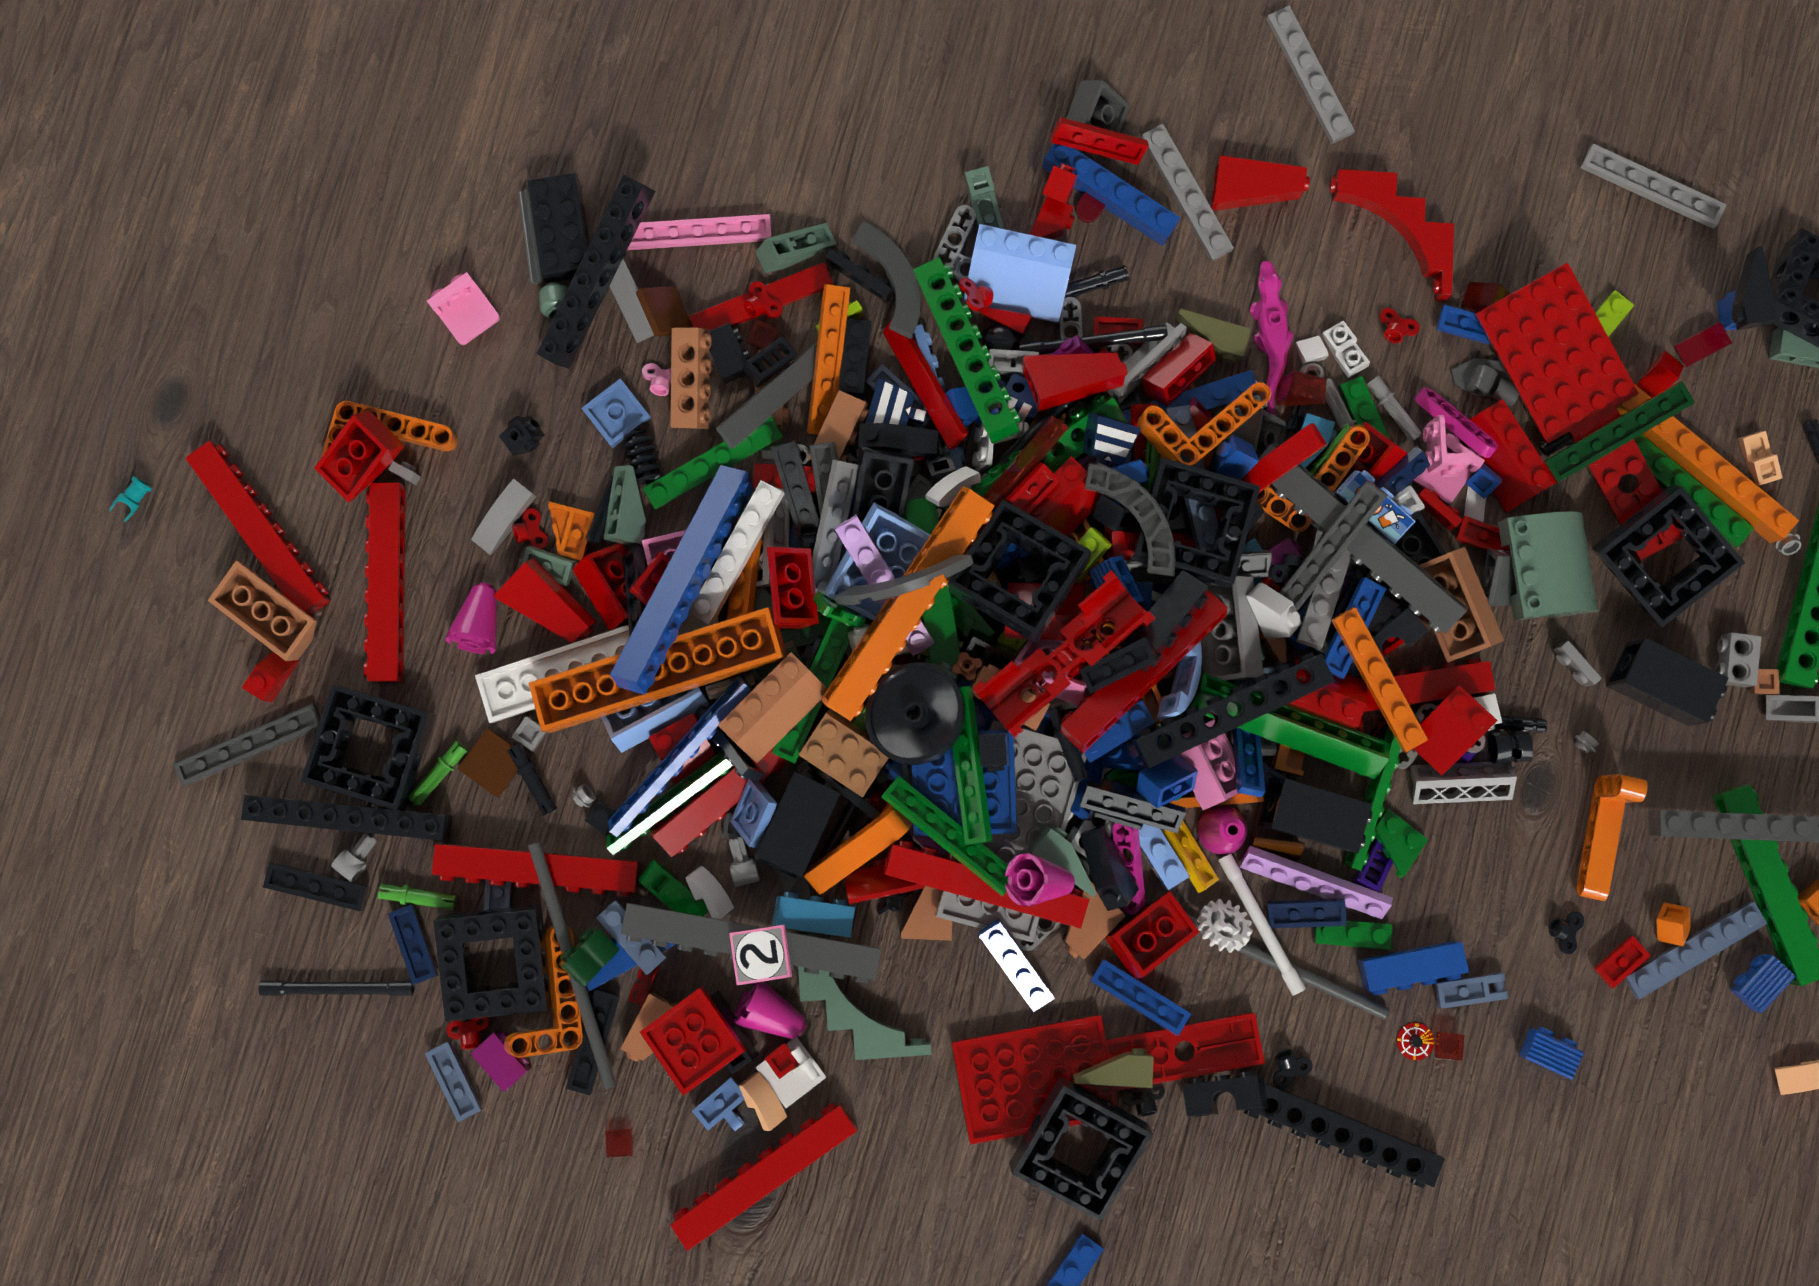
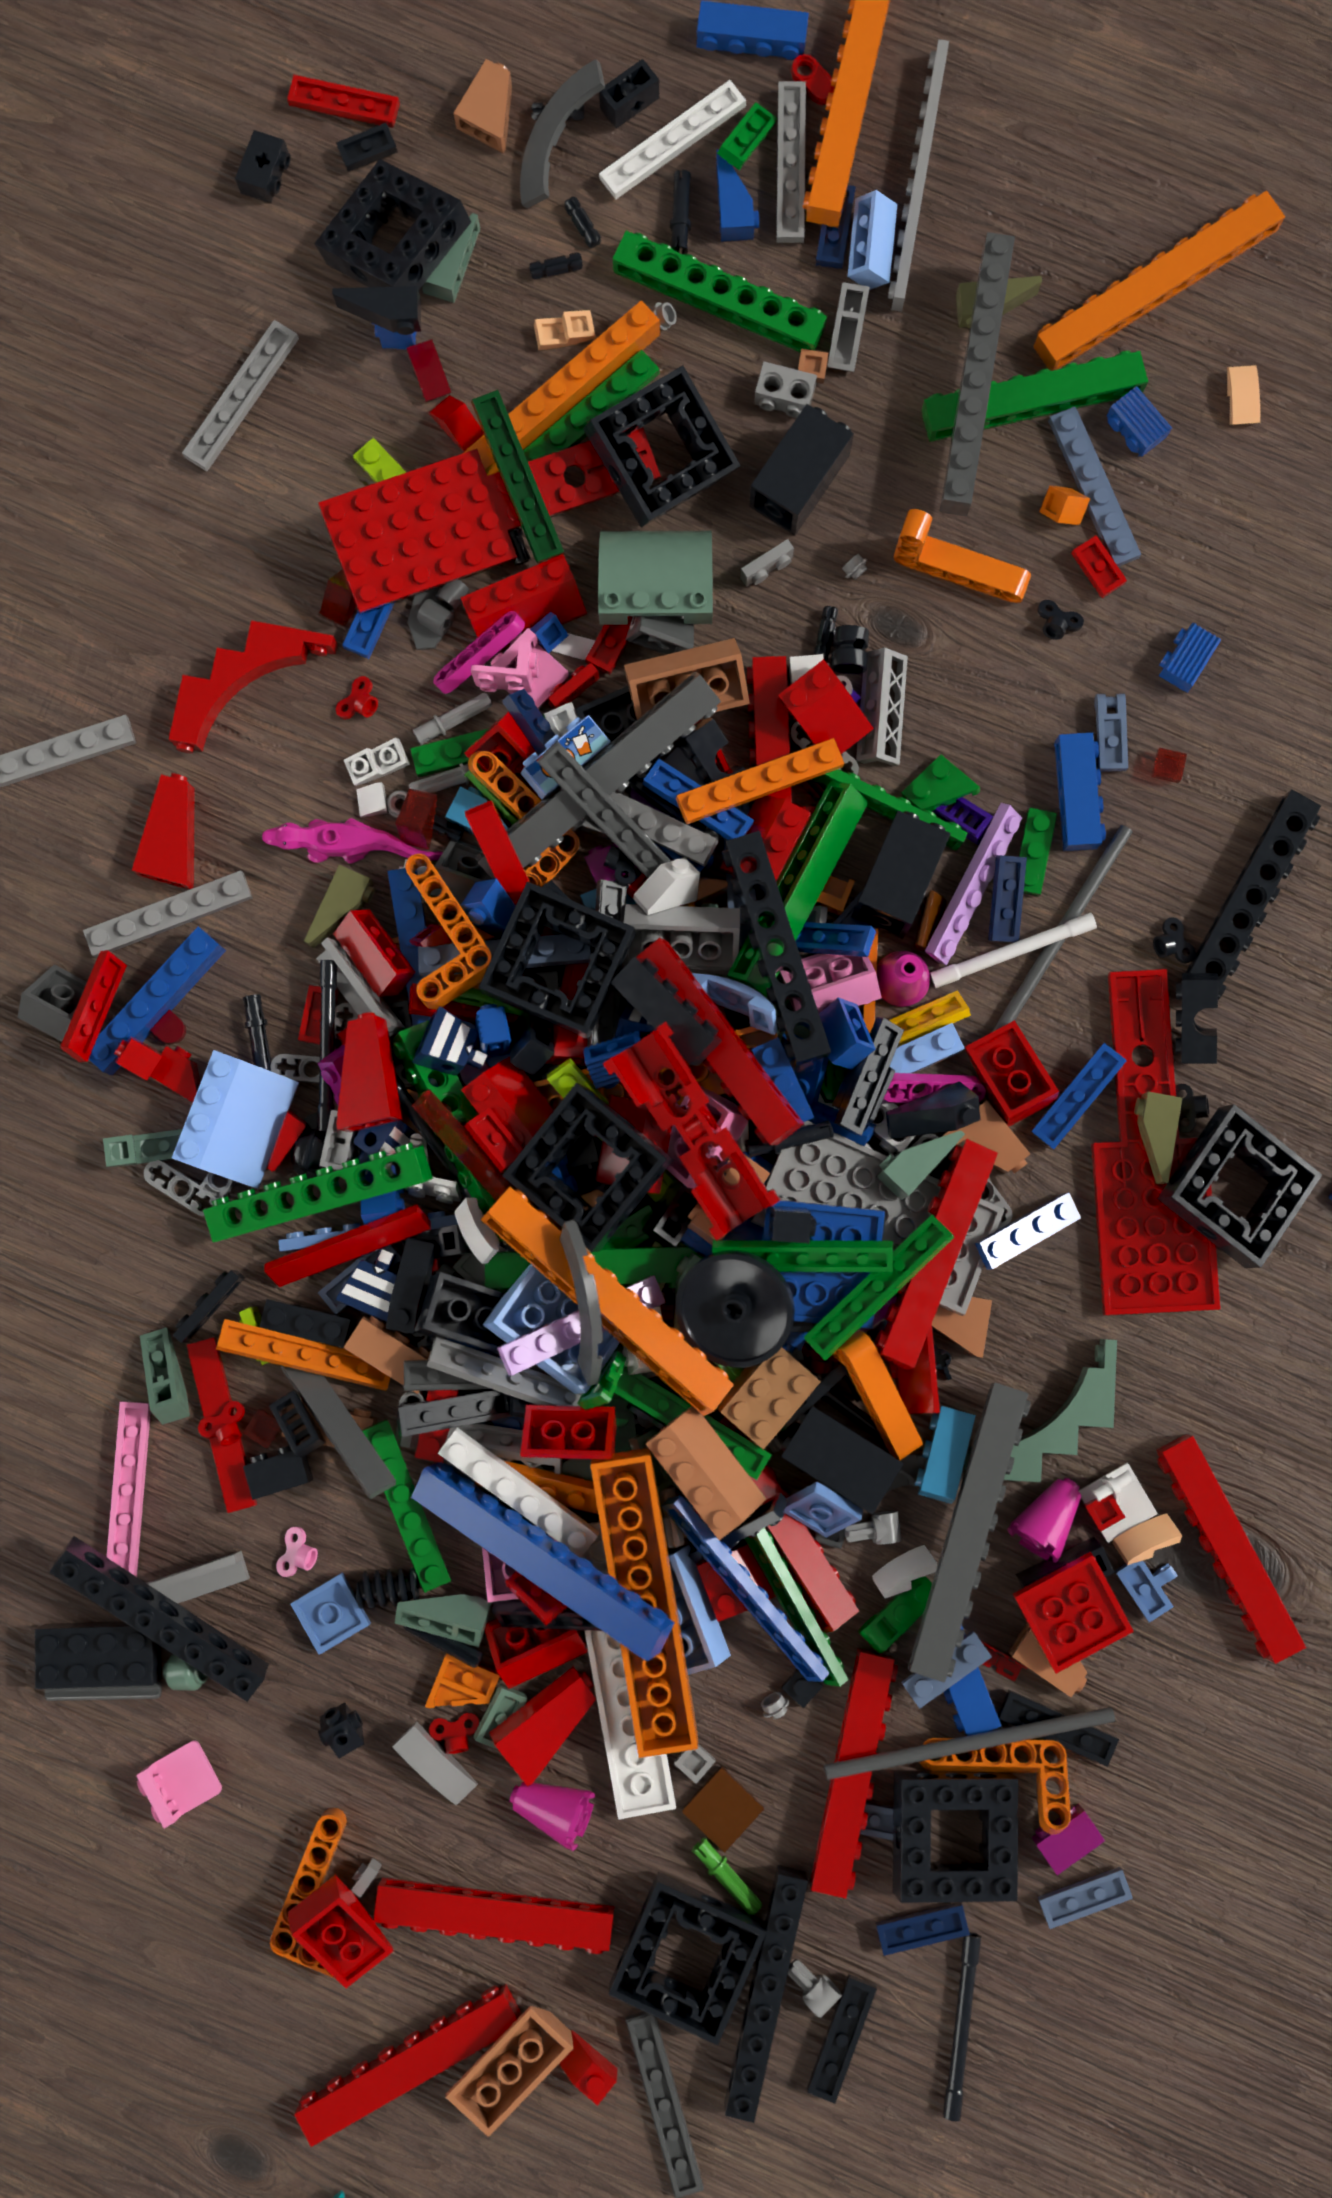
camera: 75 degrees left, 0 degrees up
(415, 896) = (864, 1929): bright green pin -> none
(468, 1032) = (1032, 1874): red piece -> none
(532, 779) = (747, 1765): black pin -> none
(588, 956) = (963, 1723): dark green brick -> none
(619, 1142) = (1175, 1710): clear red plate -> none
(663, 309) = (218, 1541): reddish brown tile -> none
(681, 370) = (290, 1529): nougat brick -> none
(760, 954) = (986, 1522): slope -> none
(900, 276) = (214, 1258): dark grey tile -> none
(966, 673) = (689, 1250): copper plate -> none
(976, 297) = (255, 1168): red piece -> none
(1036, 880) = (942, 1196): dark pink cone -> none
(1119, 664) = (711, 1069): black plate -> none
(1144, 508) = (538, 1014): dark grey tile -> none
(1224, 925) = (1010, 991): white gear -> none
(1415, 1041) = (1159, 801): red piece -> none

